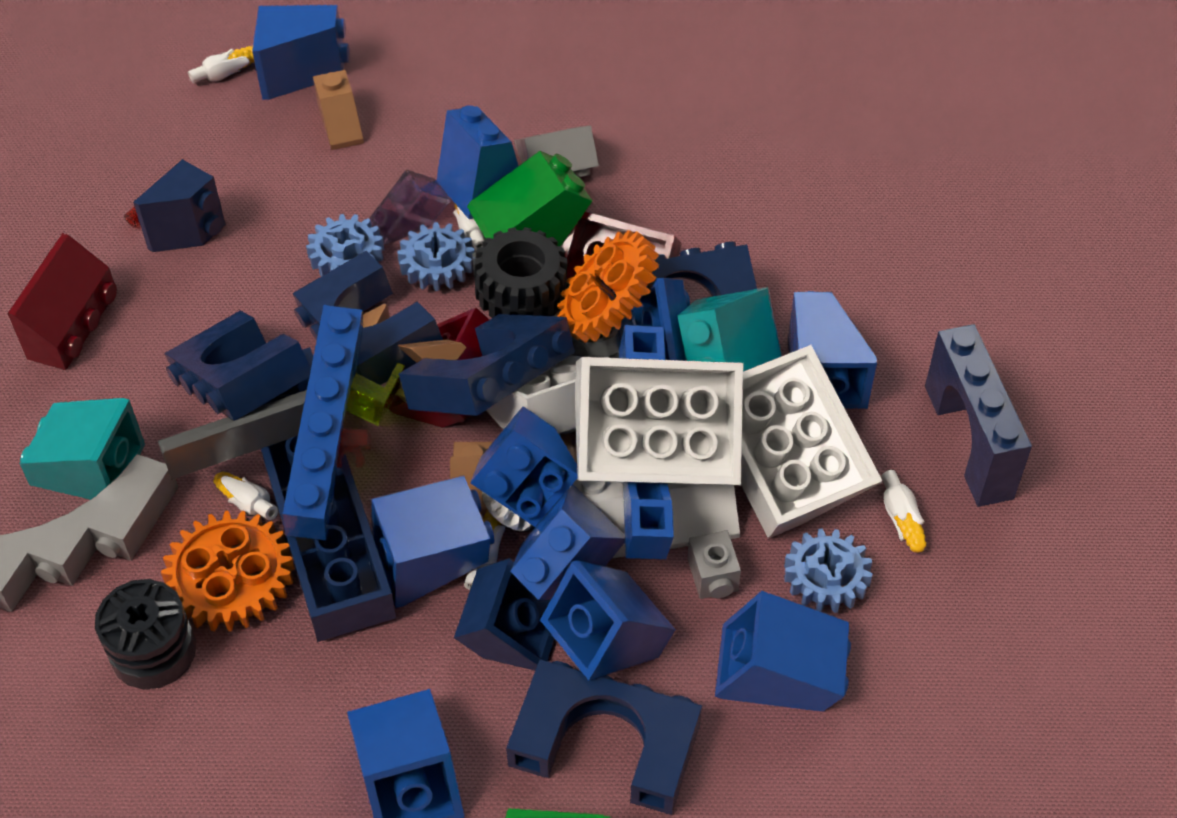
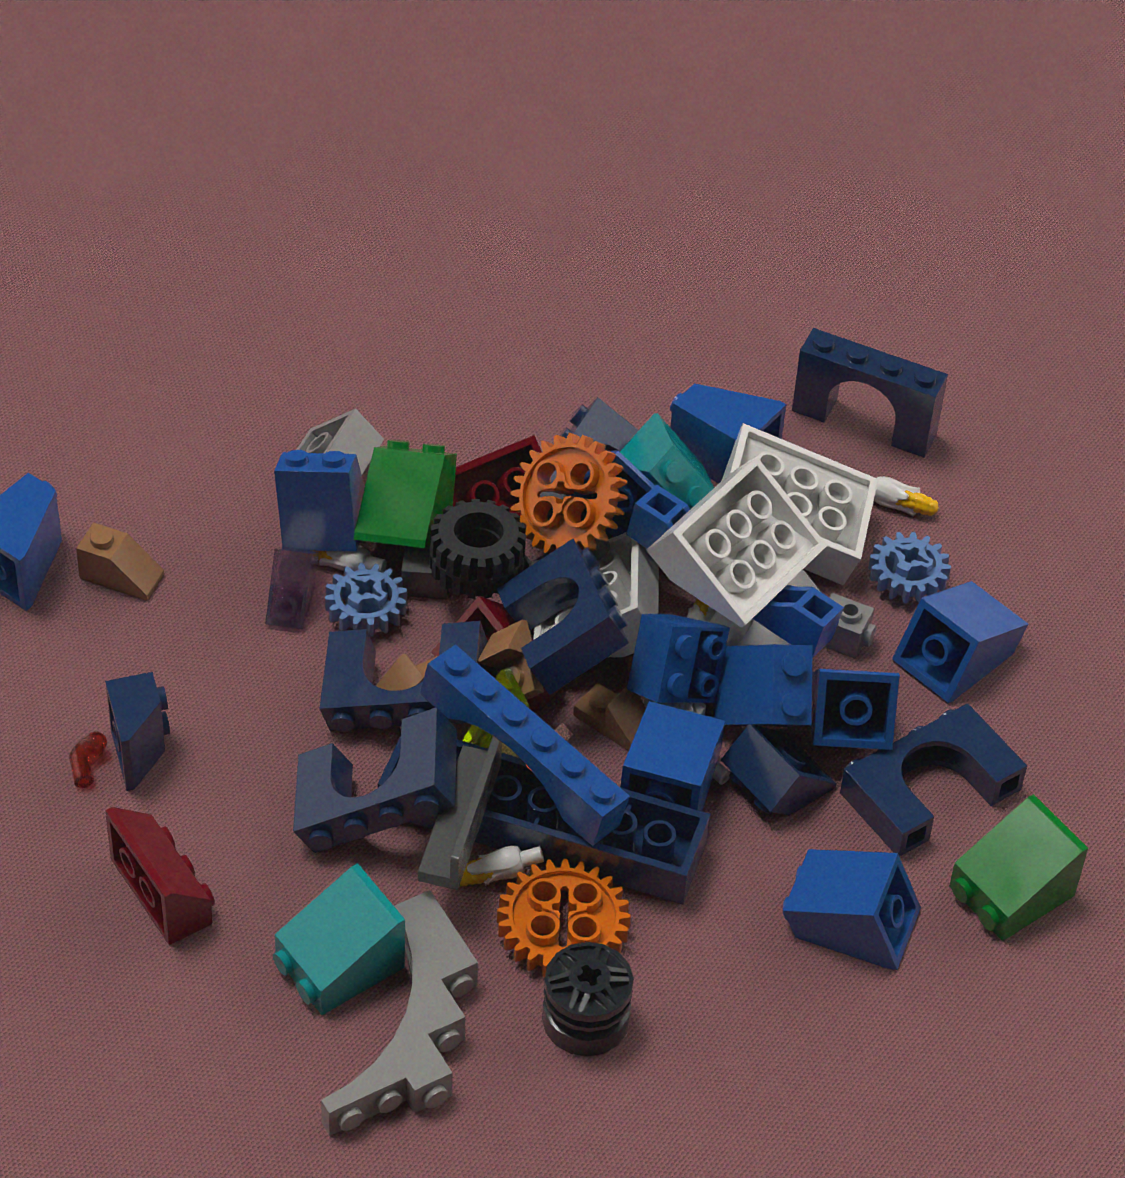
camera: 55 degrees left, 5 degrees down
(343, 242) = (289, 652): medium blue gear -> none

